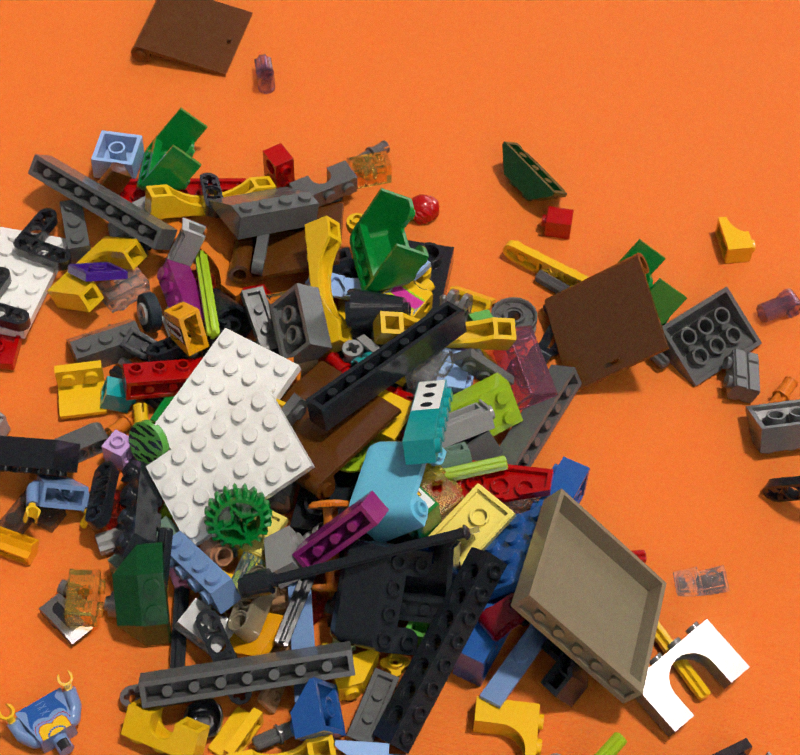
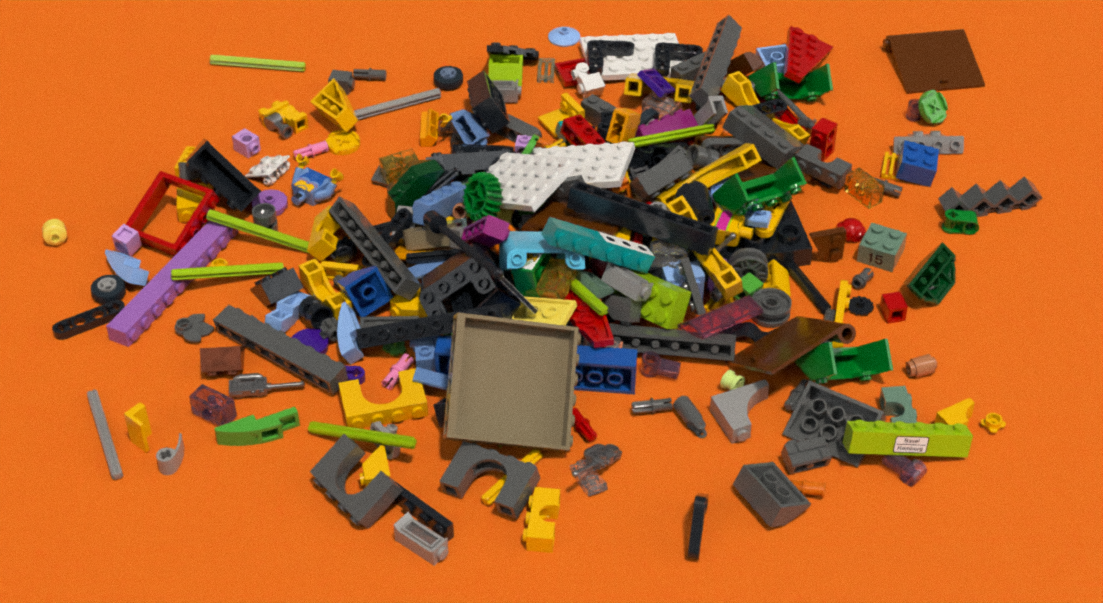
camera: 70 degrees right, 10 degrees down
(36, 343) = (587, 83): none -> white brick
(126, 123) = (803, 53): none -> red wing
(233, 171) = (803, 119): none -> dark grey sword
(275, 63) = (933, 107): none -> bright green tile
(277, 278) = (700, 156): none -> dark grey wheel
(322, 92) = (935, 139): none -> light grey bracket
(340, 134) = (893, 157): none -> yellow tile
(356, 113) = (917, 163): none -> blue brick
(439, 83) = (997, 199): none -> dark grey brick
(454, 222) = (830, 243): none -> reddish brown wing
(458, 121) = (961, 222): none -> green piece
(458, 686) = (425, 357): none -> medium blue brick
(458, 724) = (392, 376): none -> bright pink pin
(467, 194) = (881, 247): none -> sand green brick
(492, 278) = (808, 286): none -> black axle
(504, 232) = (859, 281): none -> dark grey pin
(539, 245) = (860, 306): none -> black piece
(566, 446) = (654, 365): none -> piece
(612, 397) = (731, 380): none -> yellowish green wheel
(617, 482) = (652, 406): none -> dark grey axle
(647, 452) = (690, 415): none -> dark grey piece
(650, 234) = (921, 366): none -> nougat brick
(655, 412) = (733, 406): none -> light grey arch
(687, 557) = (599, 457): none -> flat silver piece
(698, 274) = (898, 403): none -> sand green arch
(742, 217) = (993, 422): none -> yellow plate
(761, 286) = (907, 438): none -> lime brick
(771, 658) = (540, 533): none -> yellow arch

